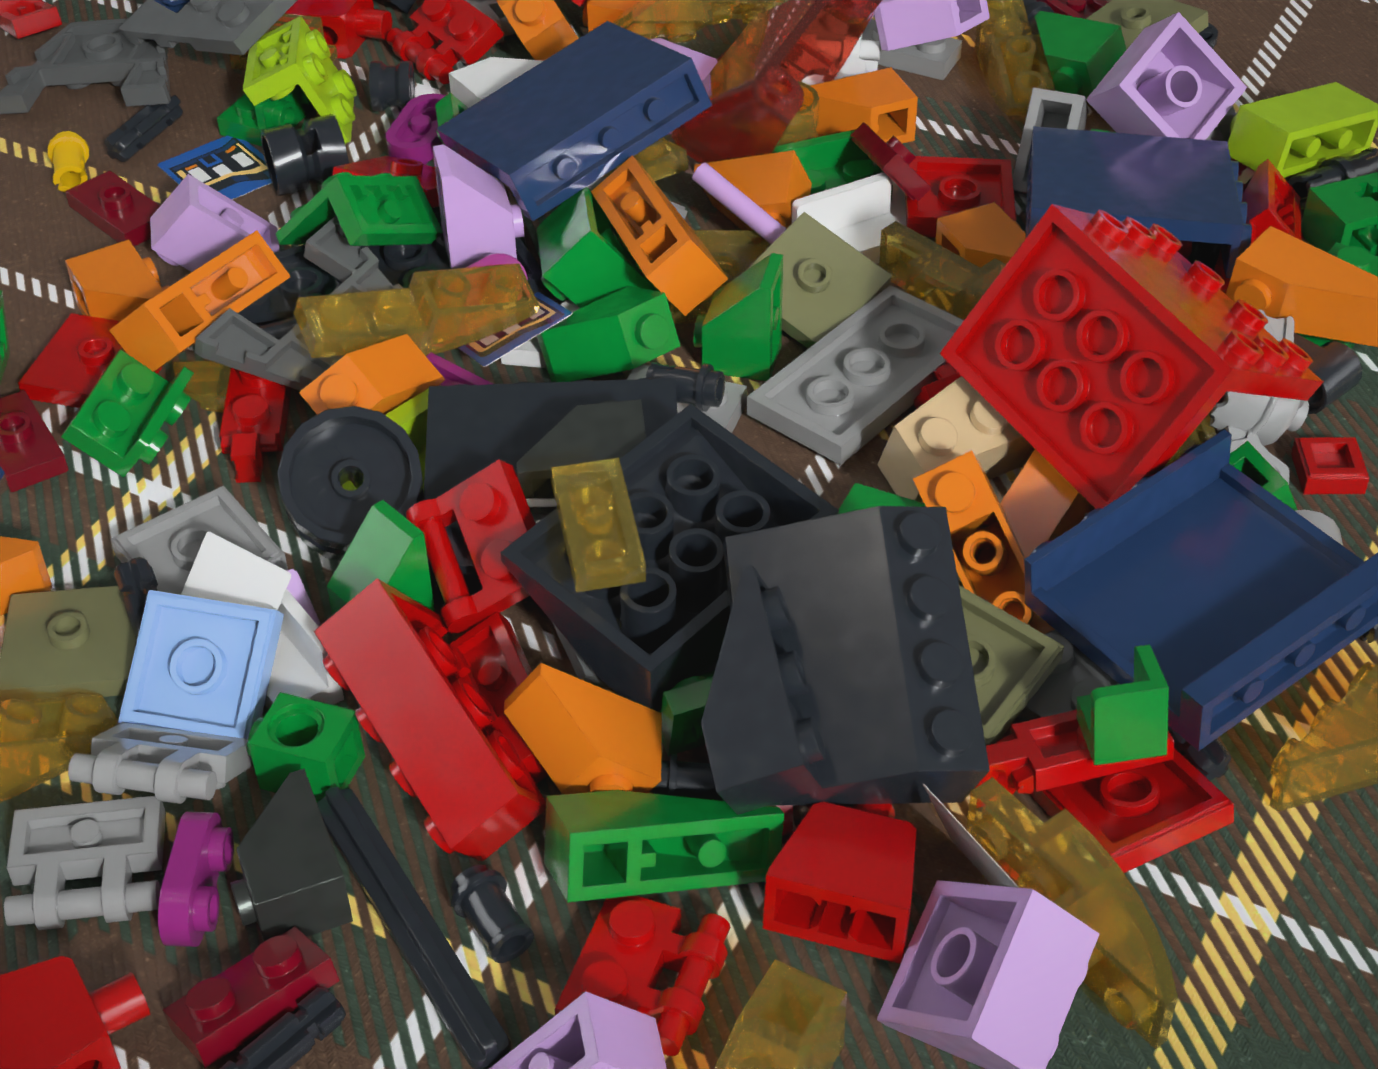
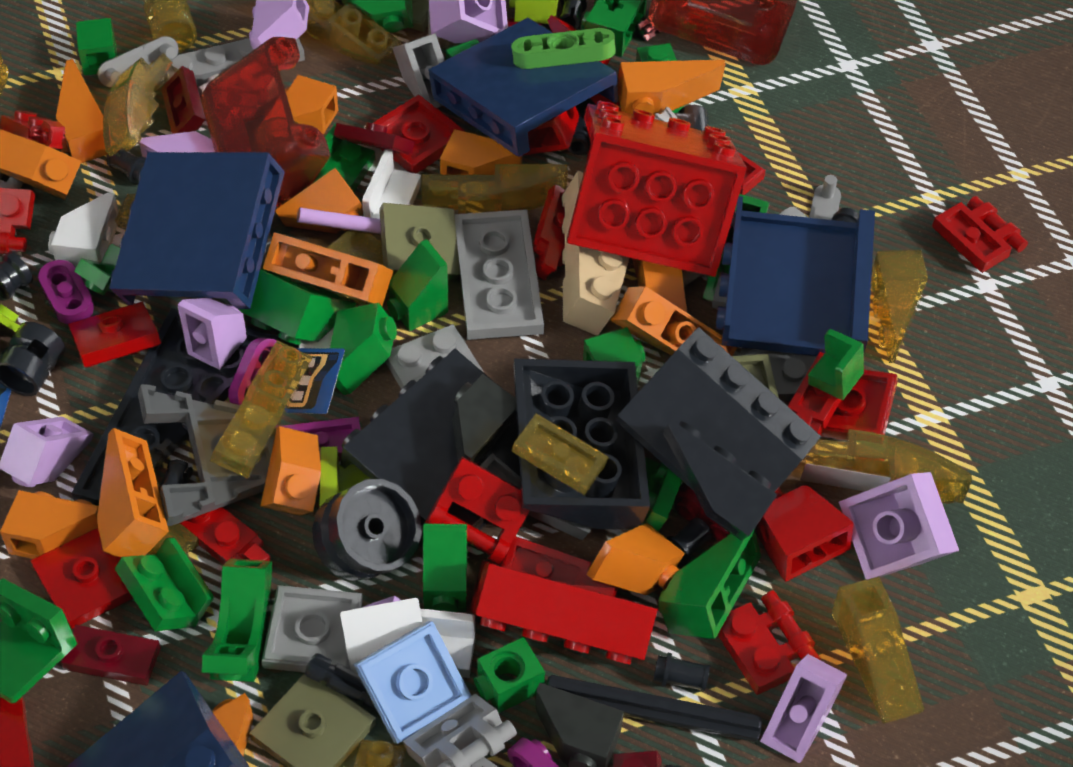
camera: 50 degrees left, 10 degrees up
(172, 469) = (241, 621): none -> green arch
(369, 211) = (154, 359): green bracket -> none
(693, 386) = (443, 345): black pin -> none
(1211, 173) = (580, 46): none -> bright green beam

